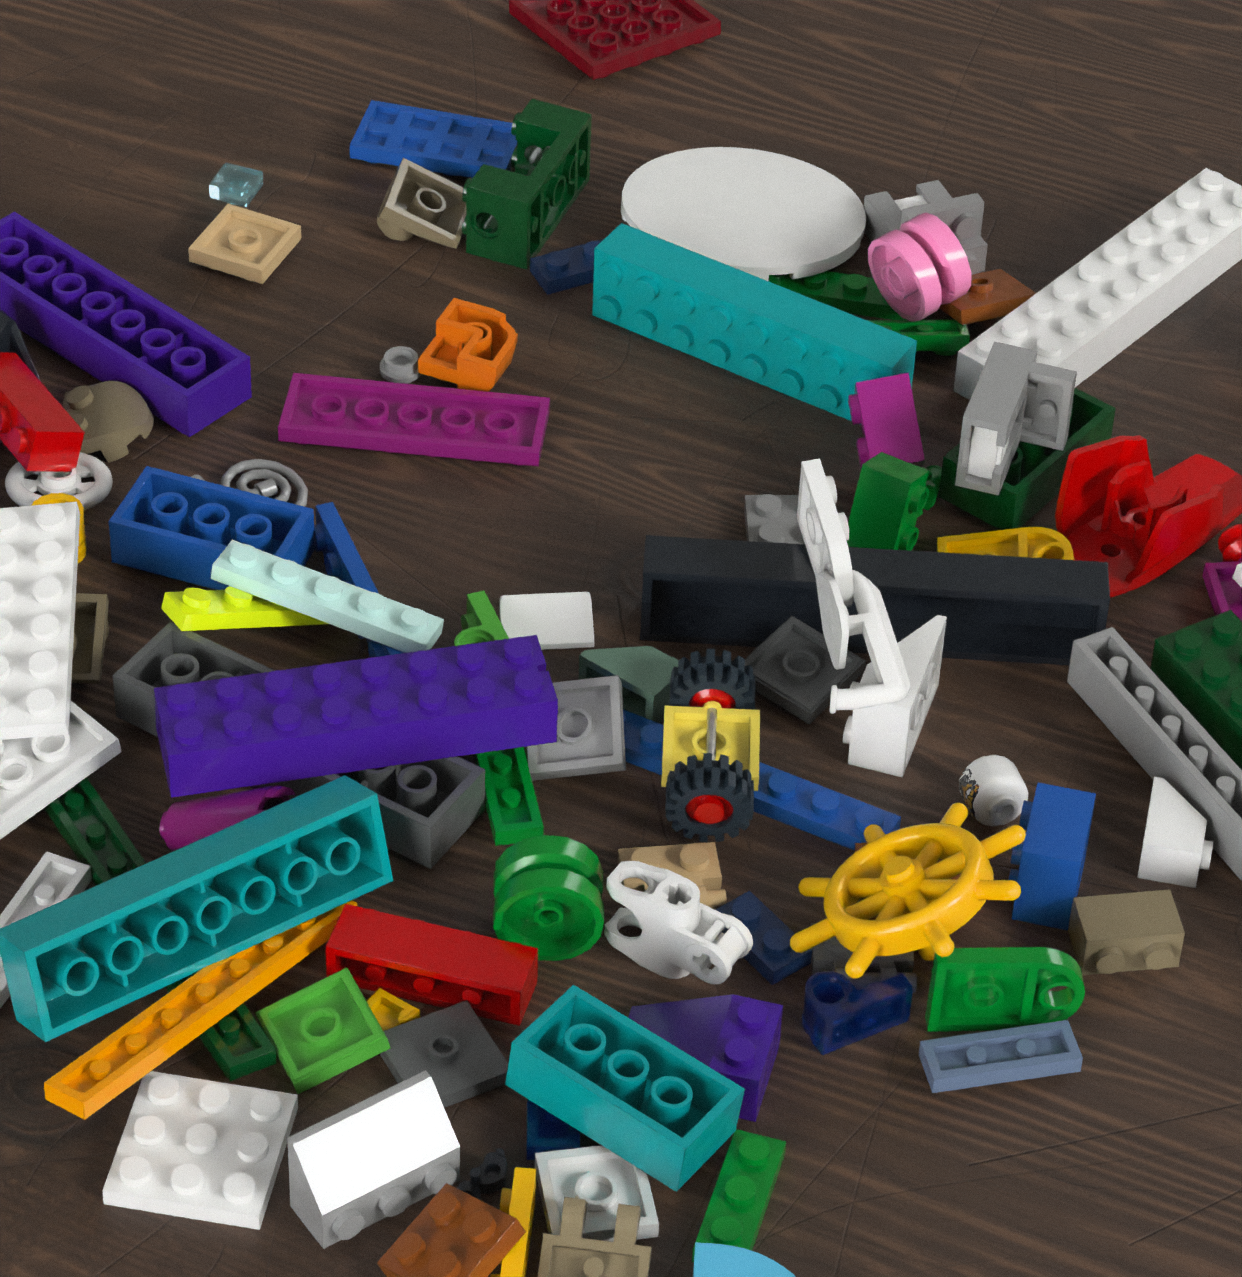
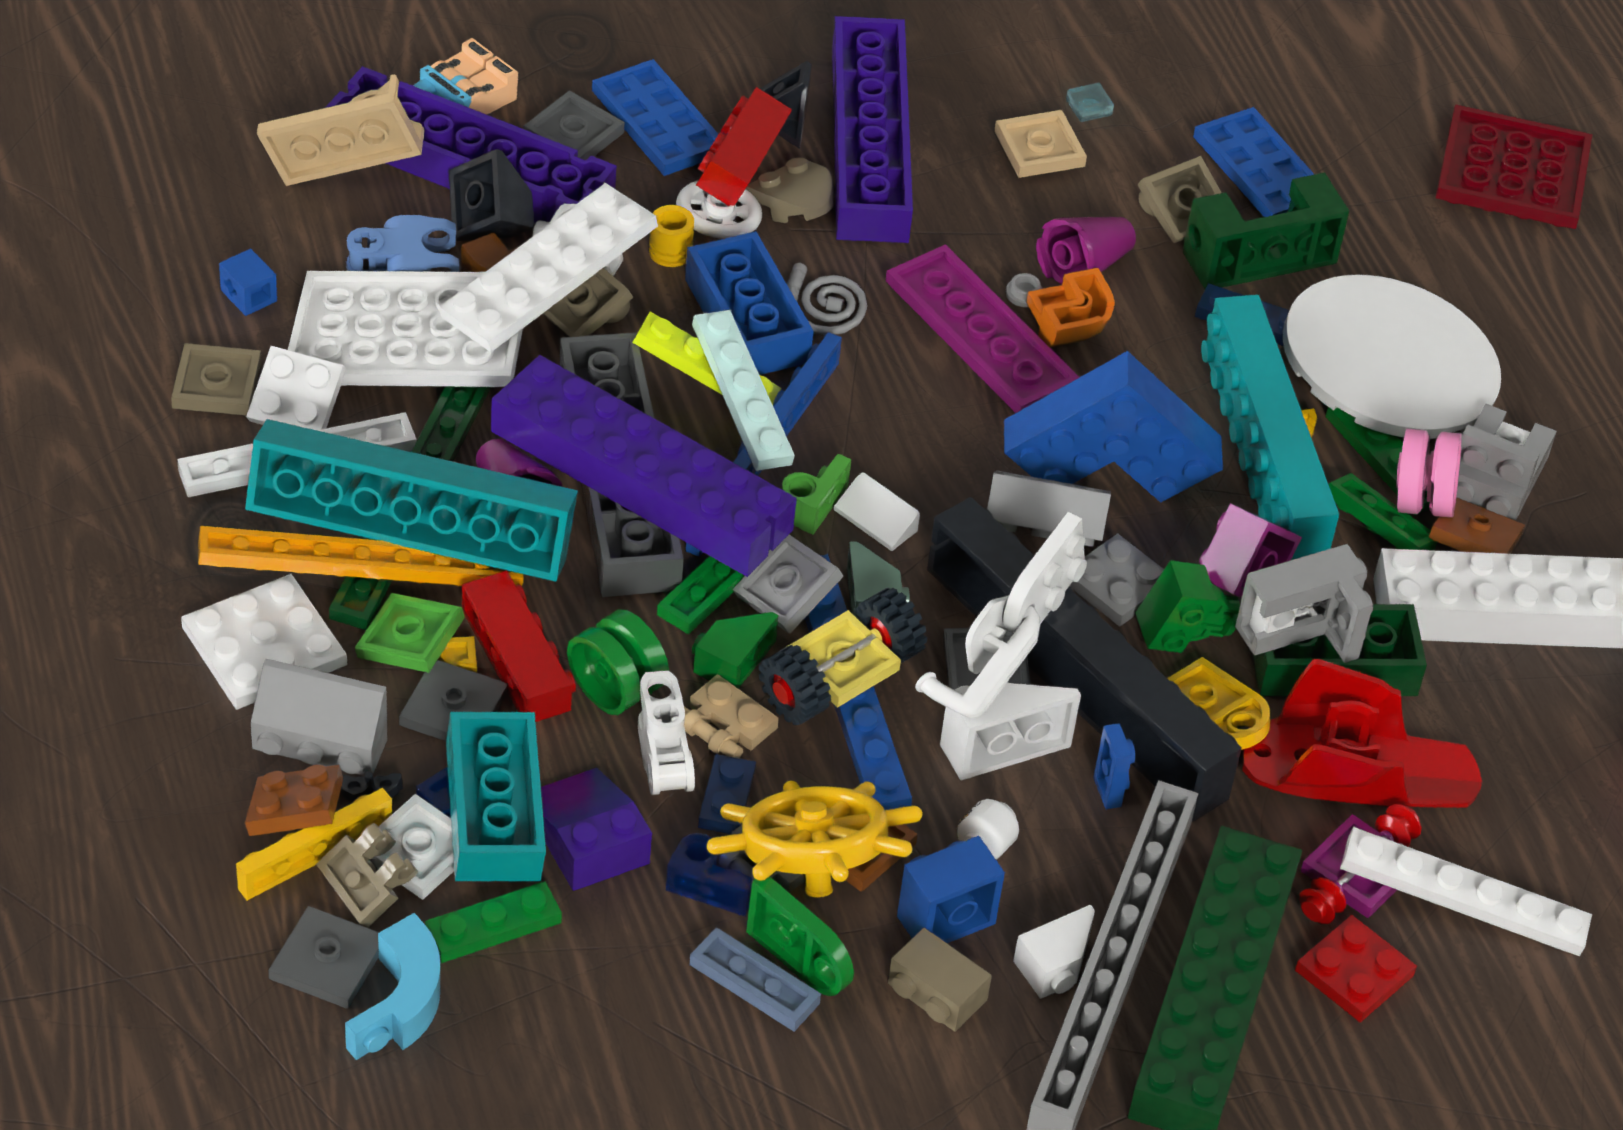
camera: 45 degrees right, 5 degrees up
(407, 300) = (1083, 244): none -> magenta cone
(605, 814) = (734, 647): none -> green slope
(662, 393) = (1116, 417): none -> blue piece
(689, 504) = (1044, 503): none -> light grey brick
(1016, 662) = (1113, 765): none -> blue plate

